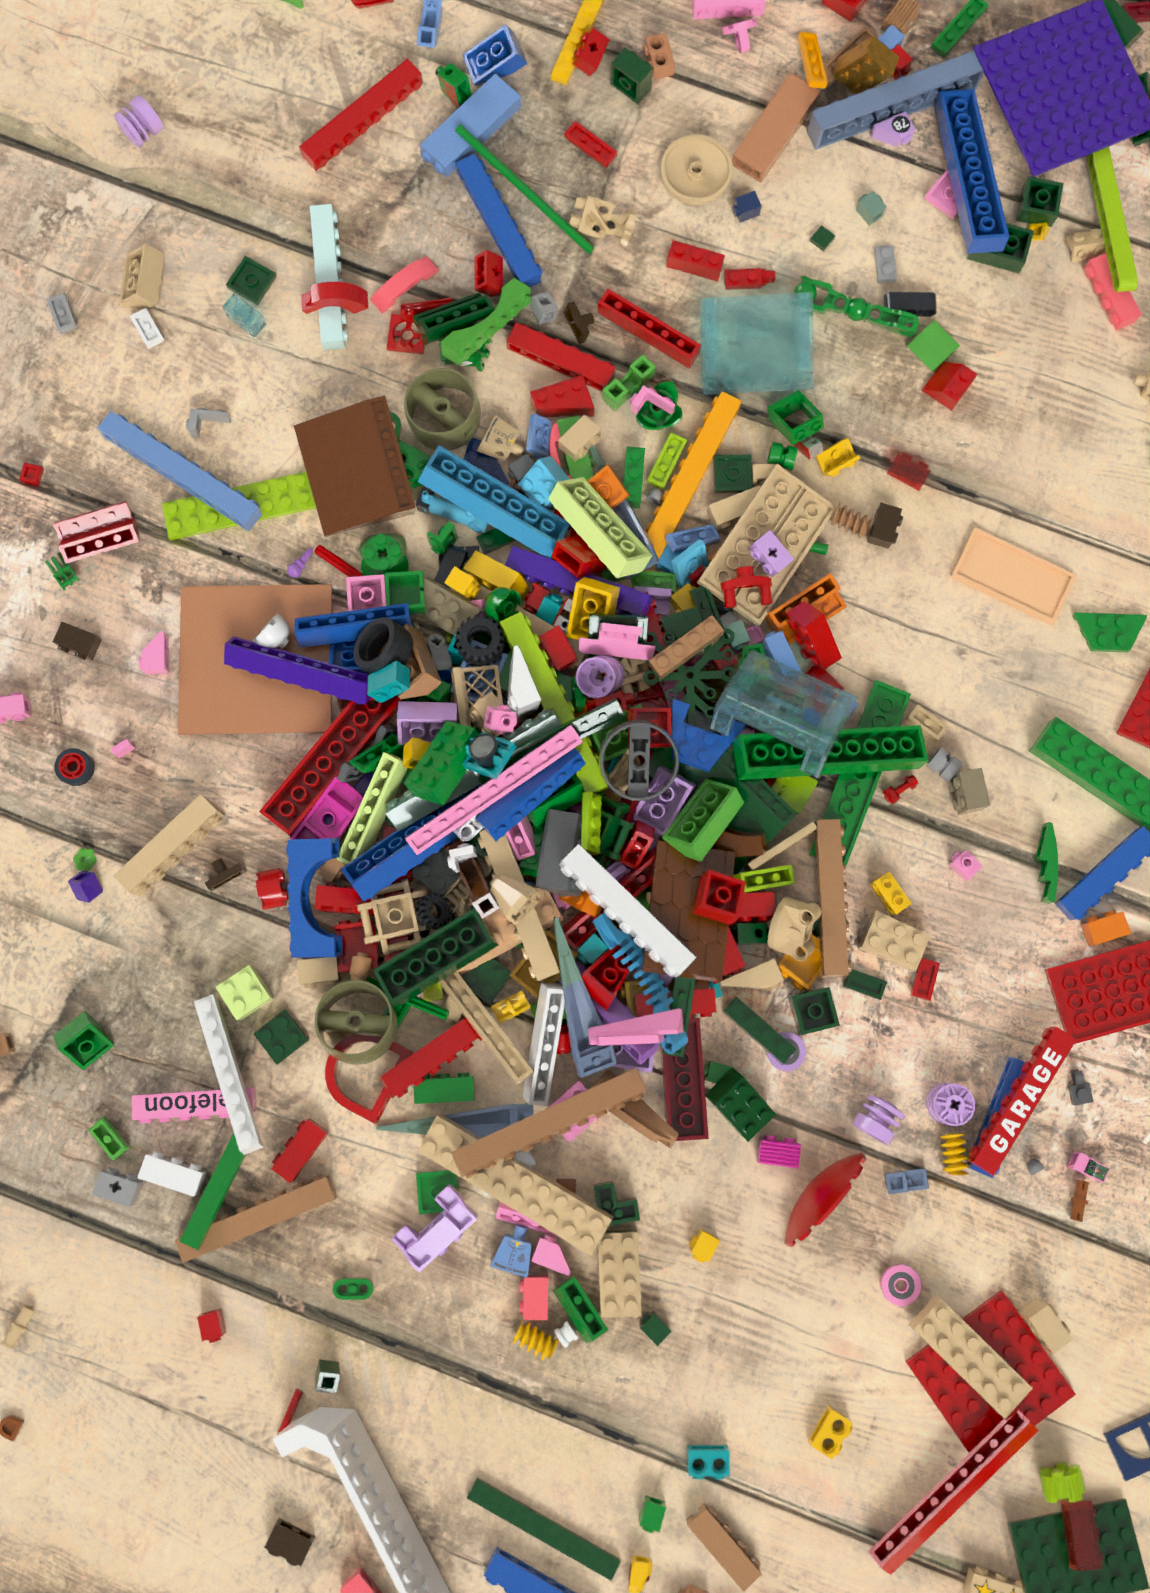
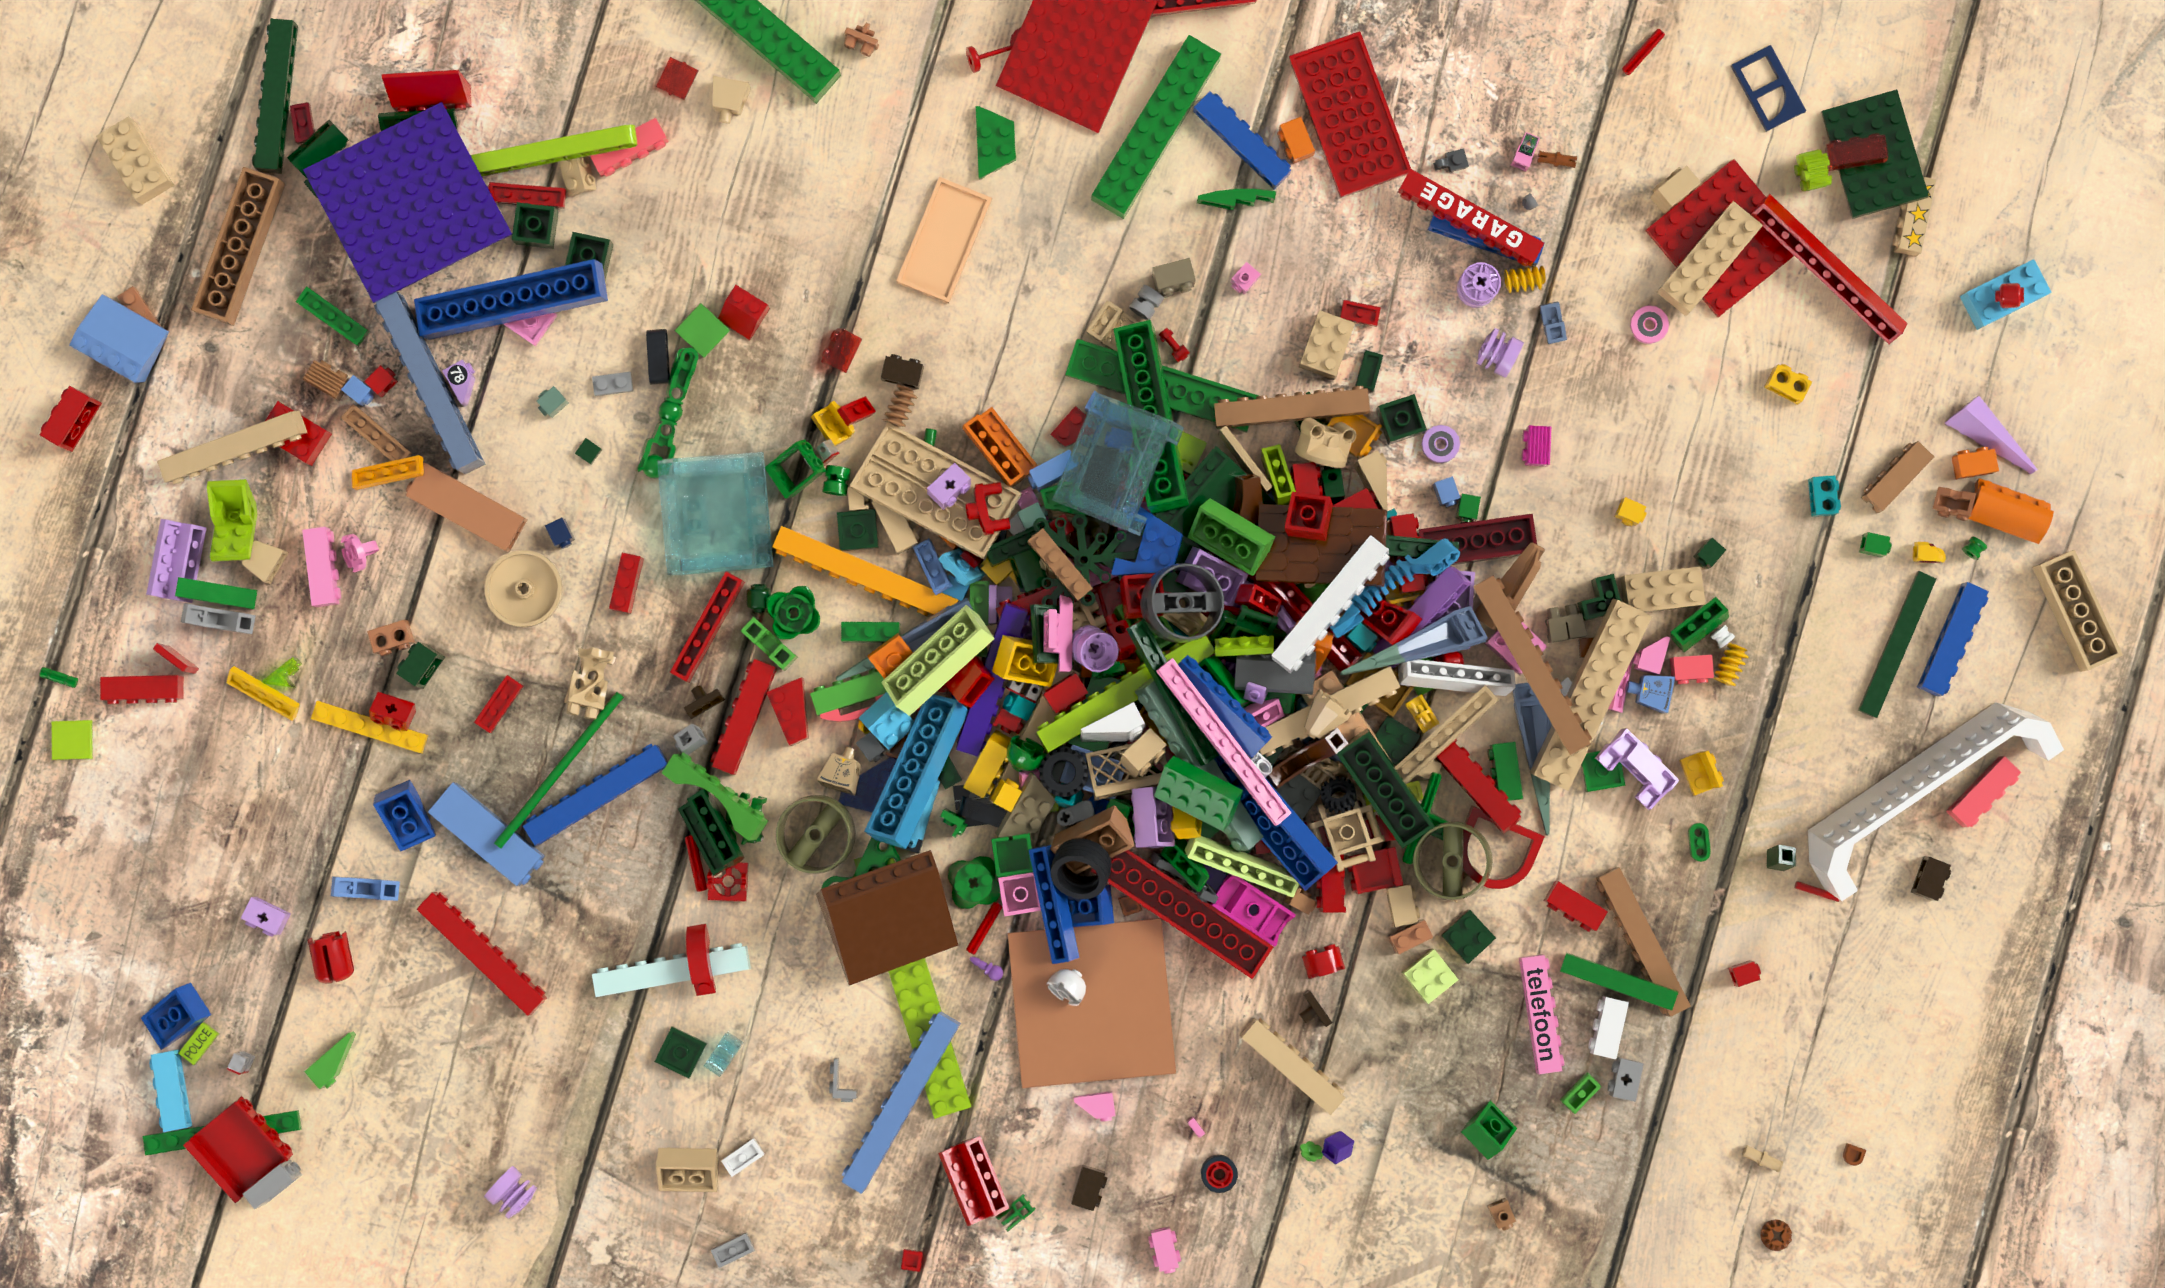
camera: 95 degrees left, 5 degrees up
(228, 1074) = (1511, 981): white brick -> none
(286, 976) = (1410, 936): none -> nougat brick
(297, 670) = (1106, 953): dark purple brick -> none
(307, 936) = (1370, 919): blue arch -> none
(360, 967) = (1398, 862): medium nougat brick -> none
(388, 681) = (1119, 858): teal brick -> none
(402, 282) = (671, 890): coral slope -> none
(424, 1297) = (1701, 772): none -> yellow bracket
(454, 84) = (441, 856): green torso -> none
(463, 852) = (1281, 768): white bracket -> none
(488, 273) = (657, 800): red brick -> none
(488, 754) = (1190, 749): piece -> none
(500, 719) = (1153, 741): bright pink brick -> none
(538, 436) = (835, 732): medium blue bracket -> none
(541, 829) = (1255, 693): none -> lavender bracket
(580, 438) = (838, 688): tan brick -> none
(590, 1156) = (1565, 627): none -> dark tan hips
(638, 1030) = (1442, 586): bright pink wedge -> none
(651, 395) = (791, 631): bright pink bracket -> none
(654, 496) = (887, 608): light grey hinge -> none
(667, 461) = (849, 598): lime plate -> none
(675, 374) = (757, 597): none -> dark green head
(736, 1052) = (1446, 492): none -> medium blue brick
(740, 1104) = (1497, 485): dark green brick -> none
(747, 278) = (639, 528): red hinge -> none
(759, 1030) = (1425, 471): dark green brick -> none
(813, 635) = (1030, 439): red brick -> none
(822, 1197) = (1575, 401): red brick -> none
(849, 478) = (856, 411): none -> red plate
(865, 65) = (399, 415): pearl gold brick -> none
(890, 894) = (1280, 350): yellow brick -> none
(1040, 231) = (565, 226): yellow slope -> none
(1069, 201) = (529, 194): none -> red plate

